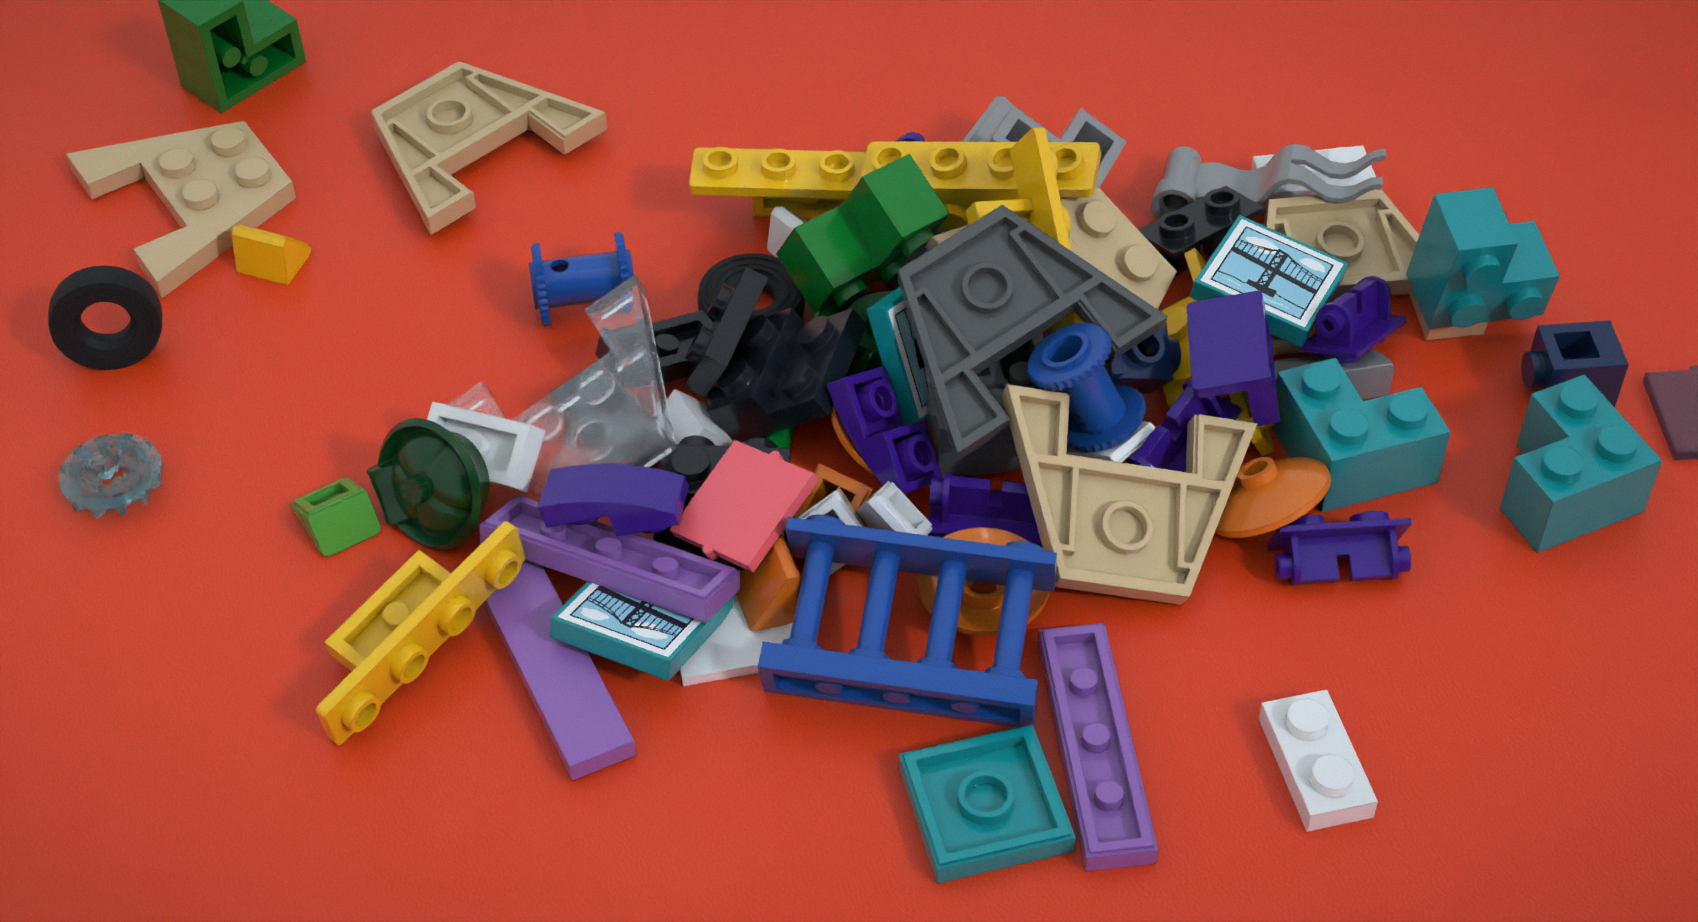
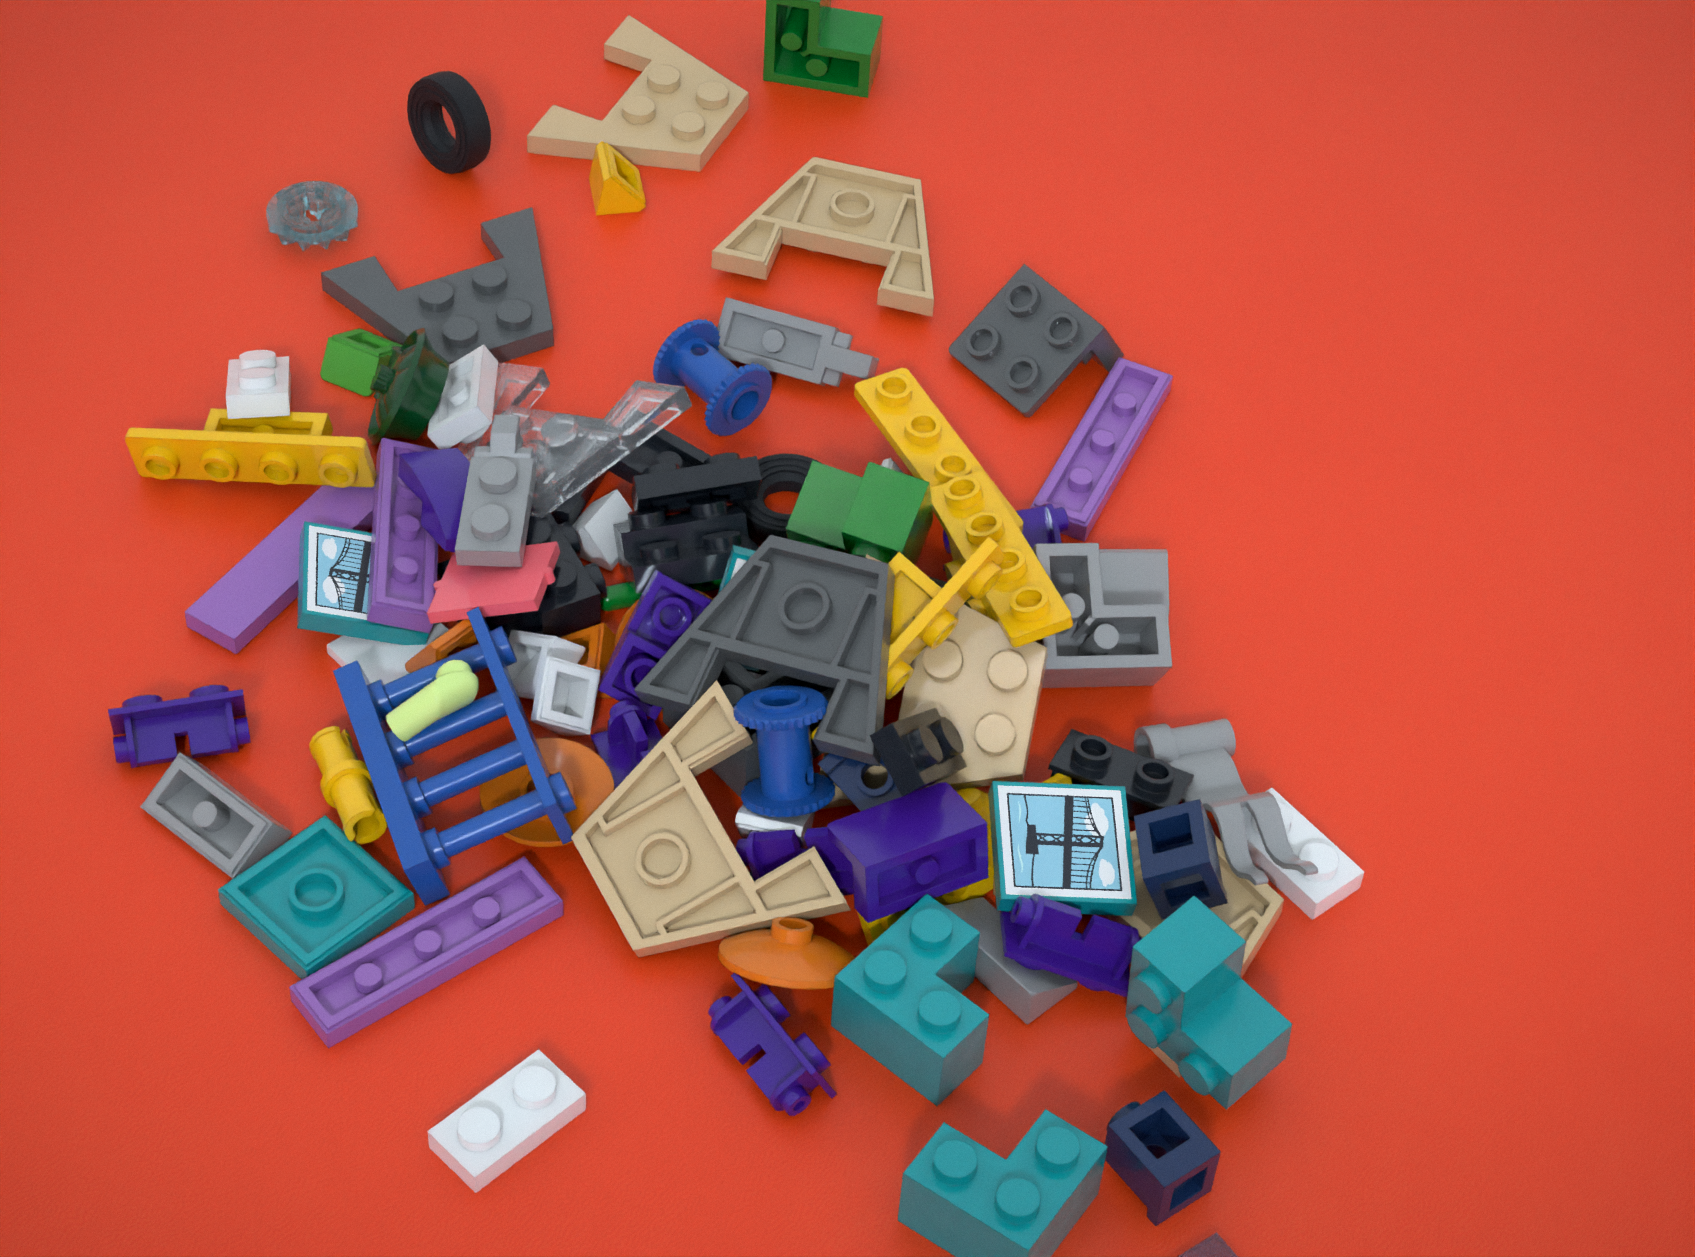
camera: 55 degrees right, 0 degrees up
(328, 594) = (258, 385): none -> white plate
(335, 420) = (488, 304): none -> dark grey wing
(579, 218) = (789, 345): none -> light grey hinge
(663, 453) = (497, 499): none -> light grey hinge
(698, 80) = (1031, 342): none -> dark grey bracket
(700, 847) = (155, 723): none -> dark purple hinge
(823, 90) = (1104, 444): none -> medium lavender tile
(838, 845) = (213, 817): none -> light grey slope
(872, 596) = (449, 692): none -> yellowish green arm
(879, 720) = (347, 785): none -> yellow pin
(1172, 295) = (920, 750): none -> black plate
(1332, 196) = (1179, 857): none -> dark blue brick

